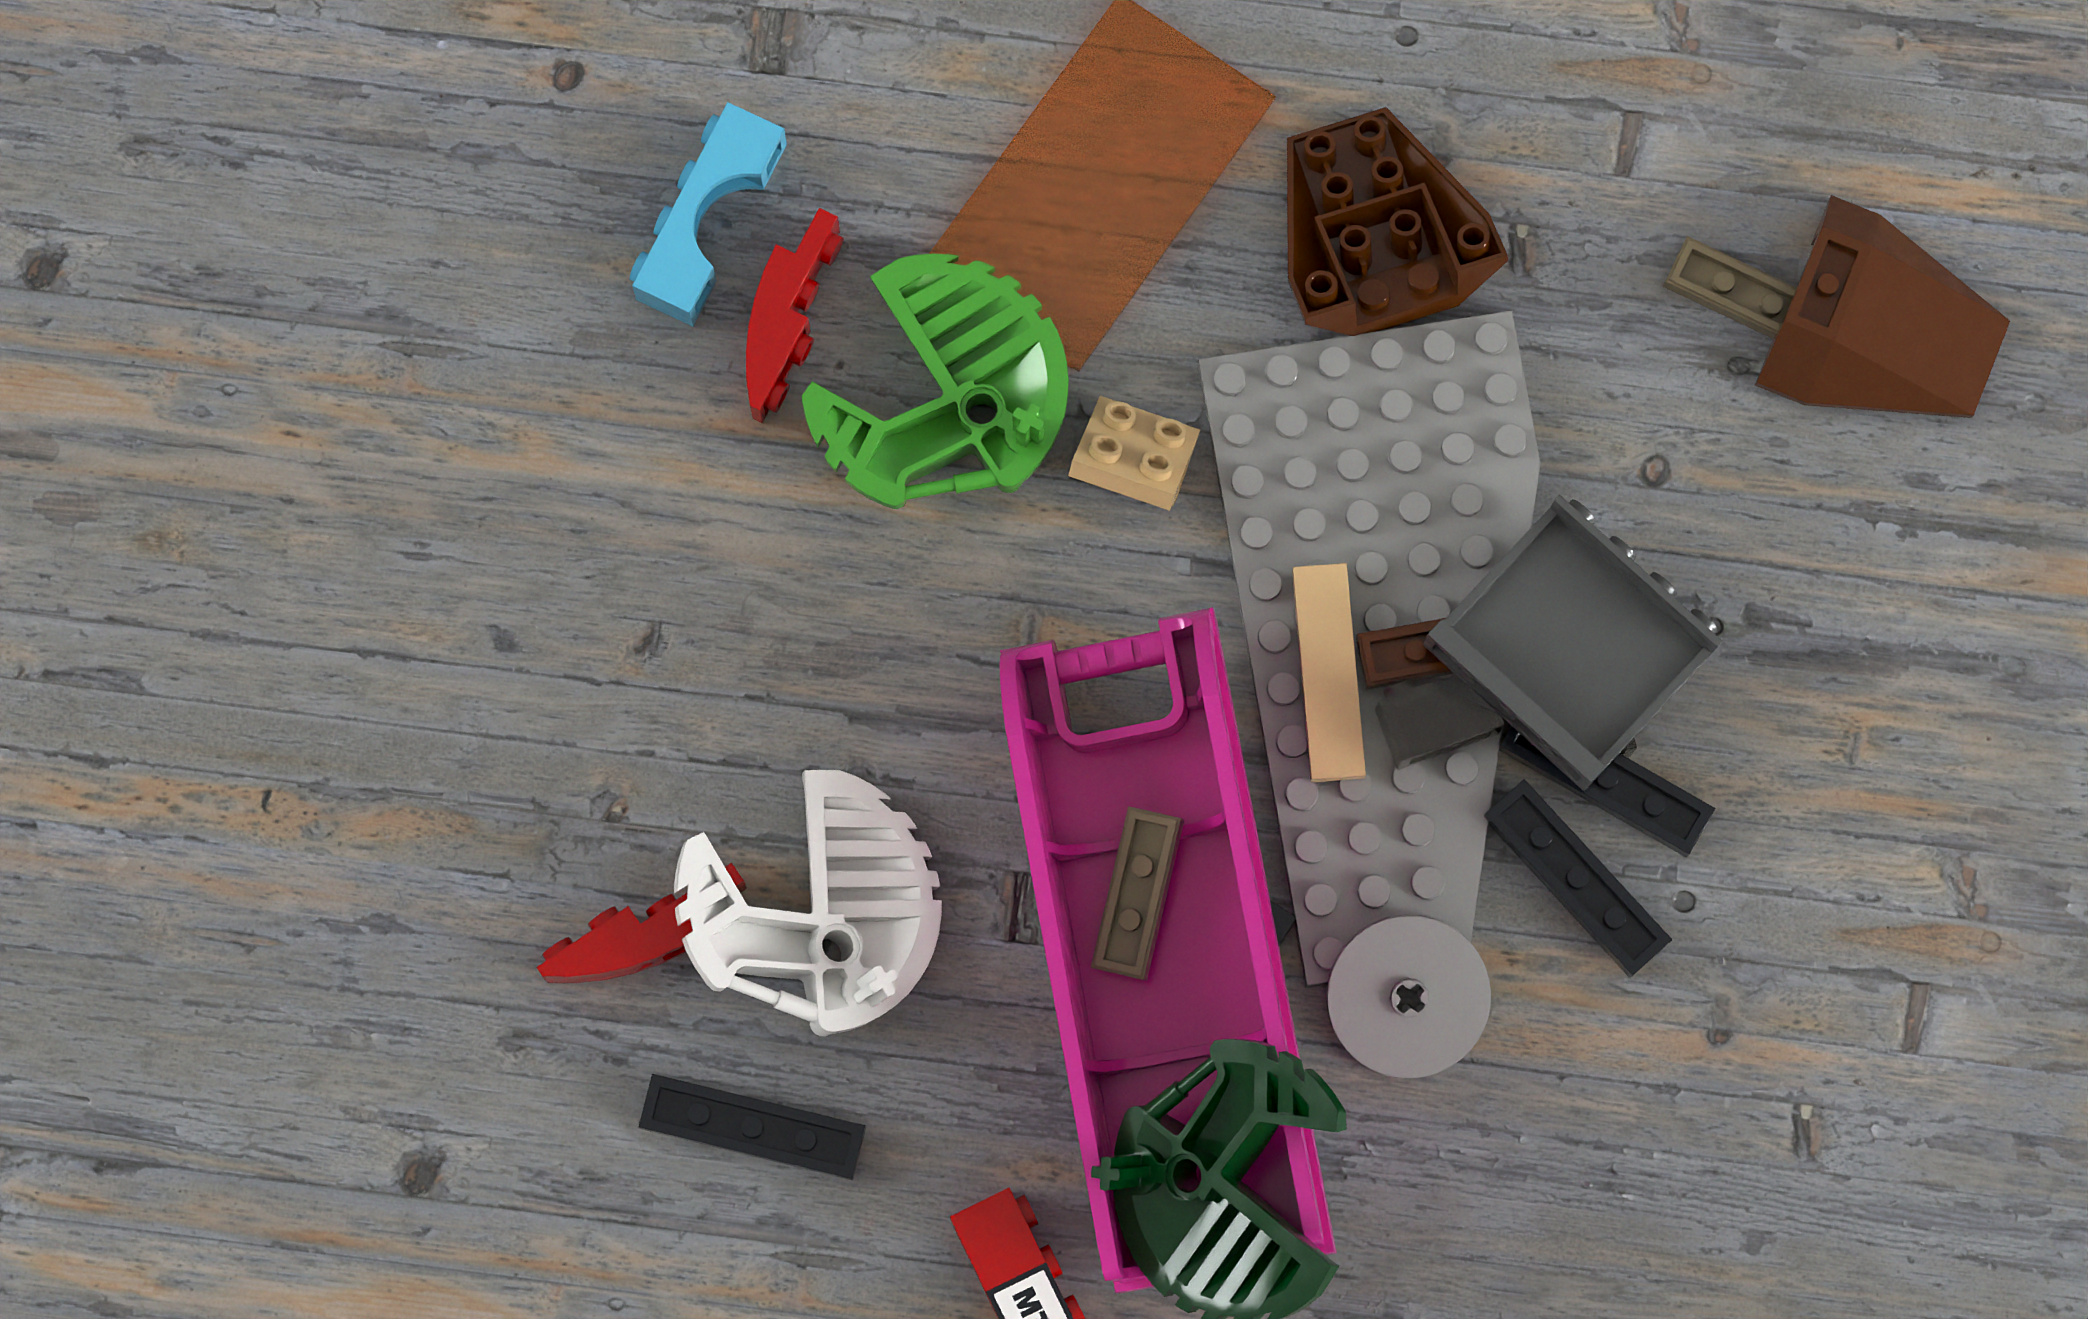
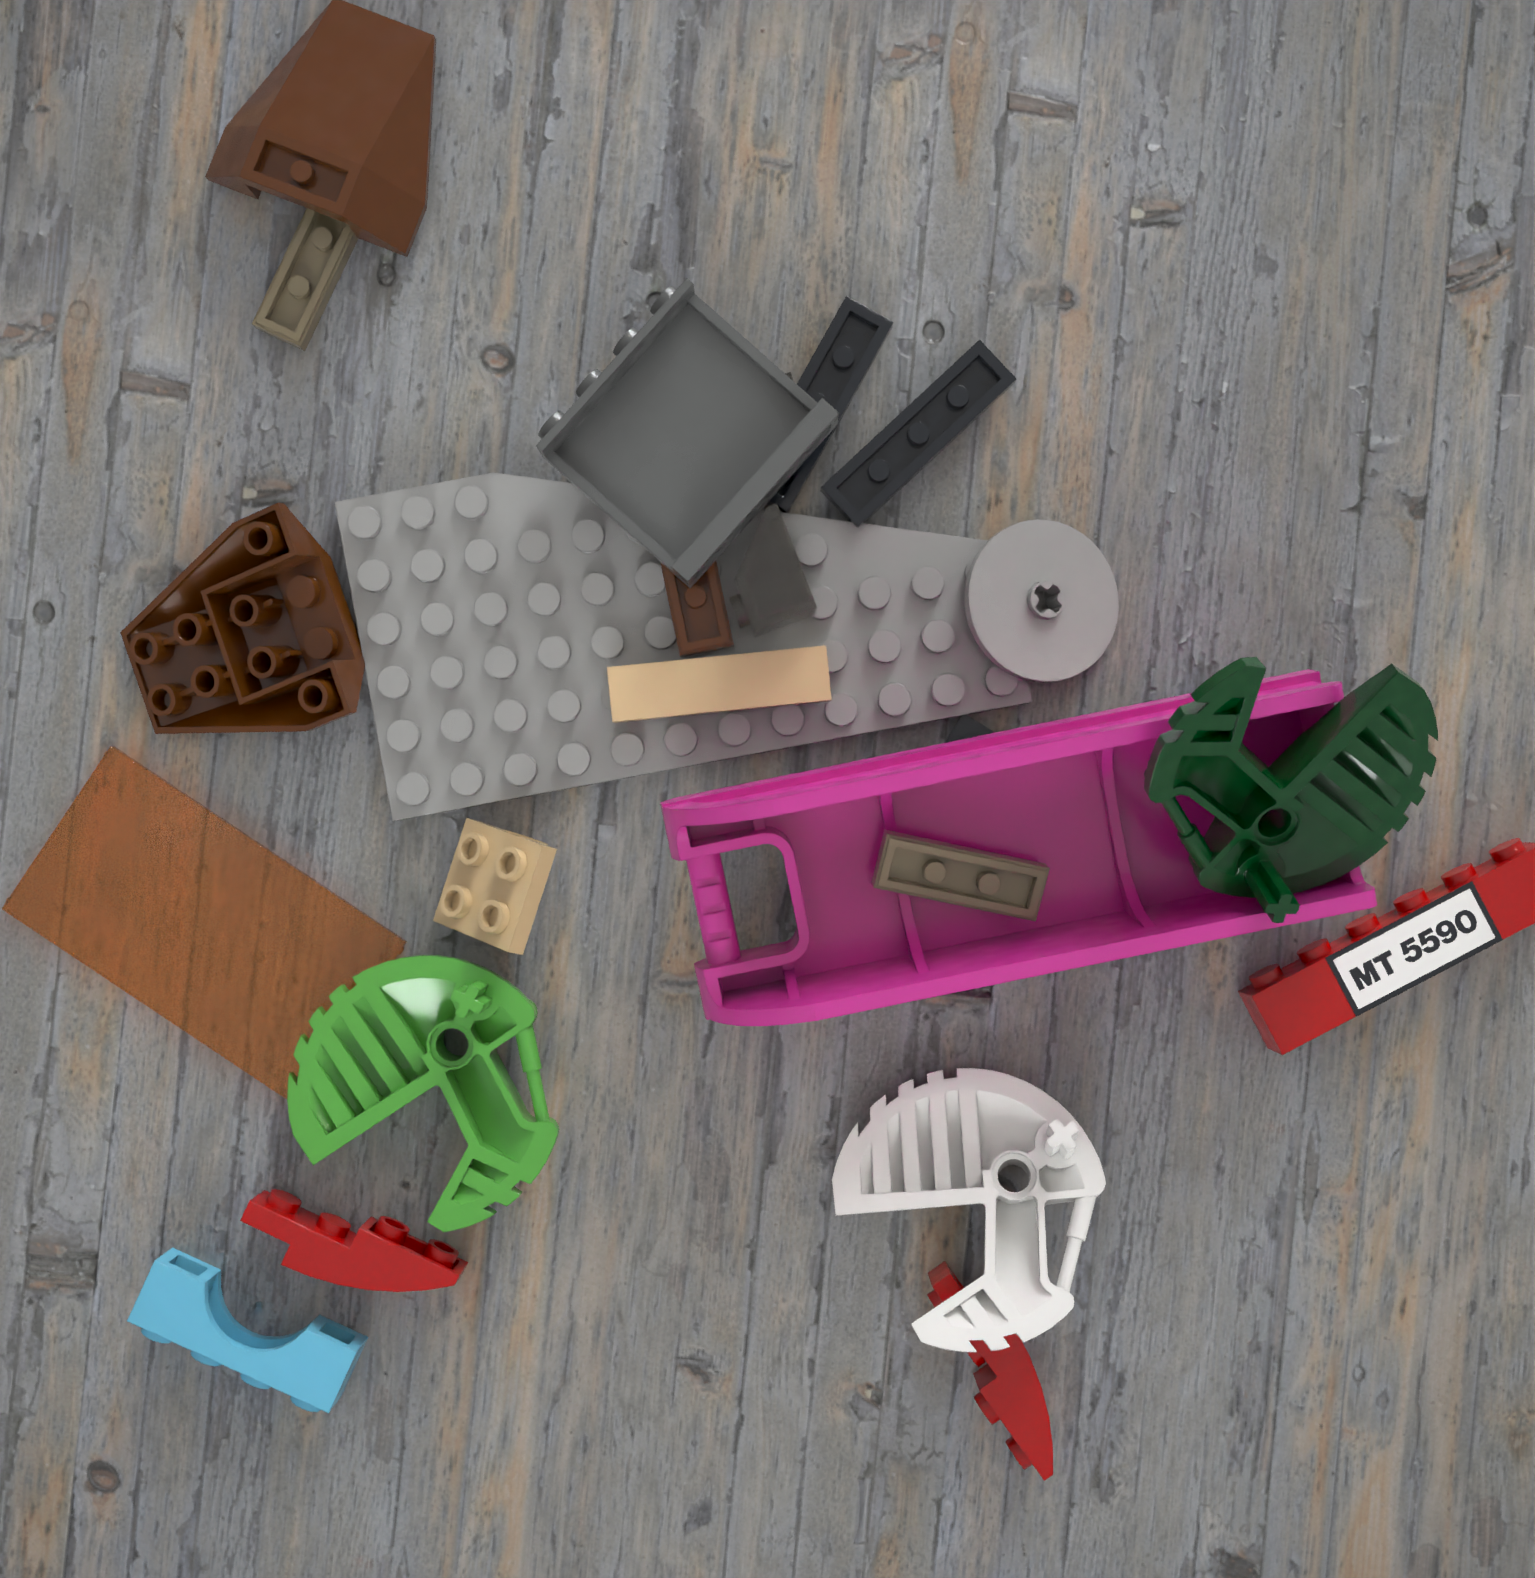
camera: 90 degrees left, 10 degrees up
(752, 1127) = (1188, 1250): black plate -> none

